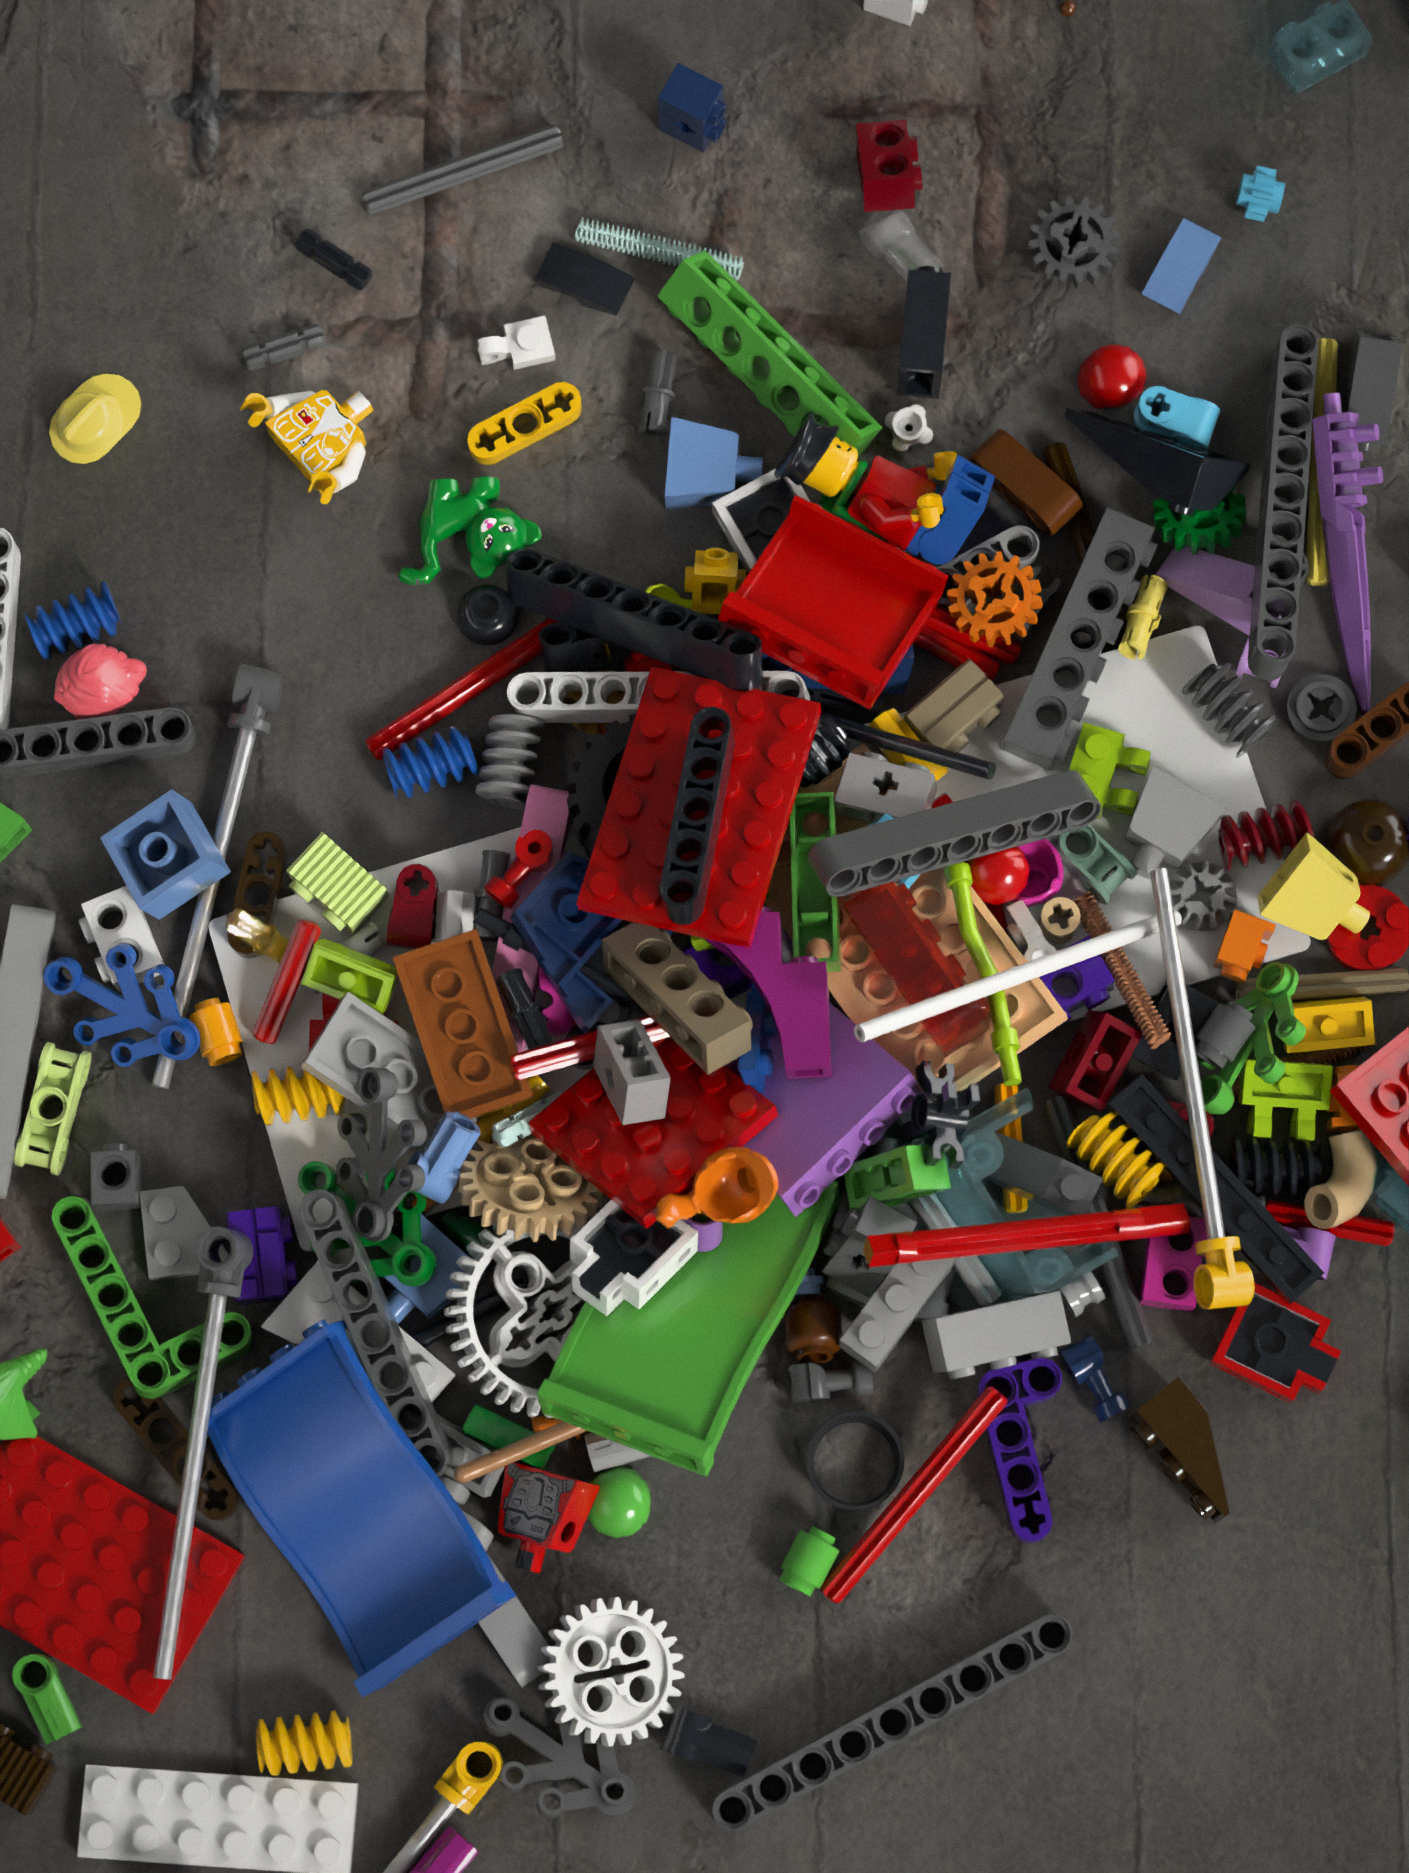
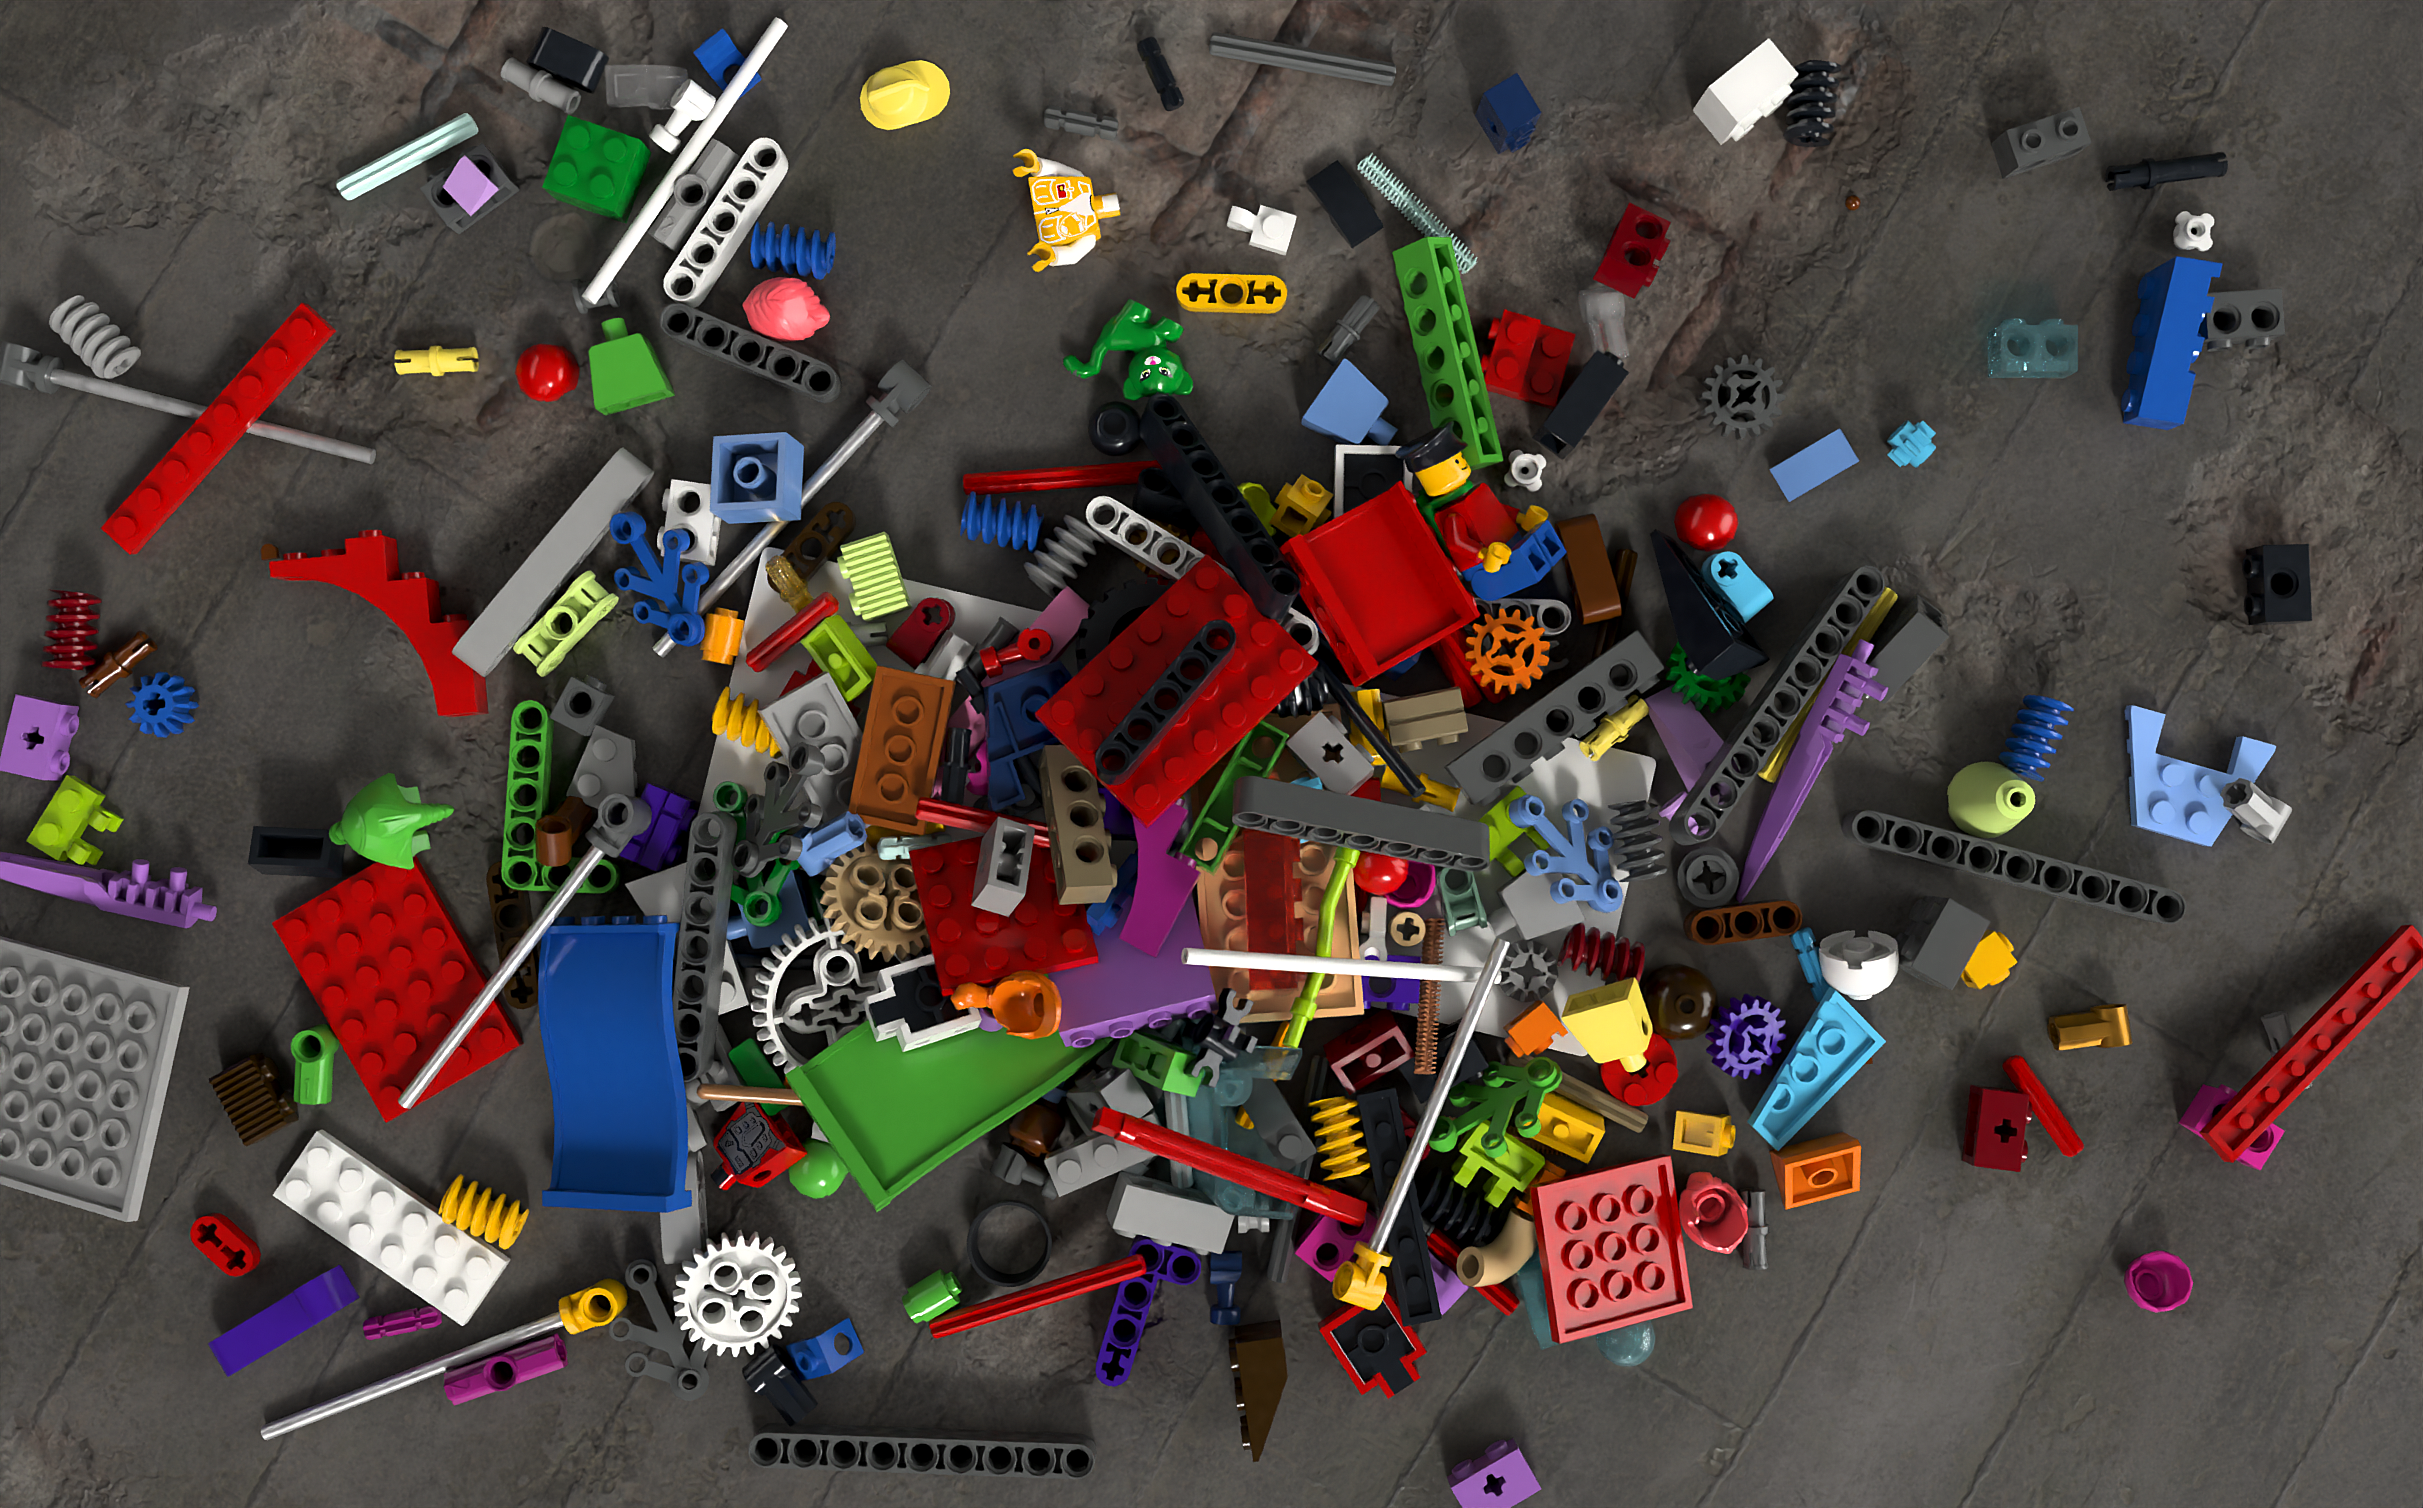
camera: 25 degrees right, 10 degrees up
(167, 1310) = (560, 830): none -> reddish brown piece
(730, 1686) = (817, 1354): none -> blue bracket
(846, 323) = (1526, 359): none -> red plate
(961, 785) = (1435, 793): none -> yellow pin
(1221, 773) = (1601, 889): none -> medium blue plant
(1224, 1034) = (1476, 1094): dark grey brick -> none

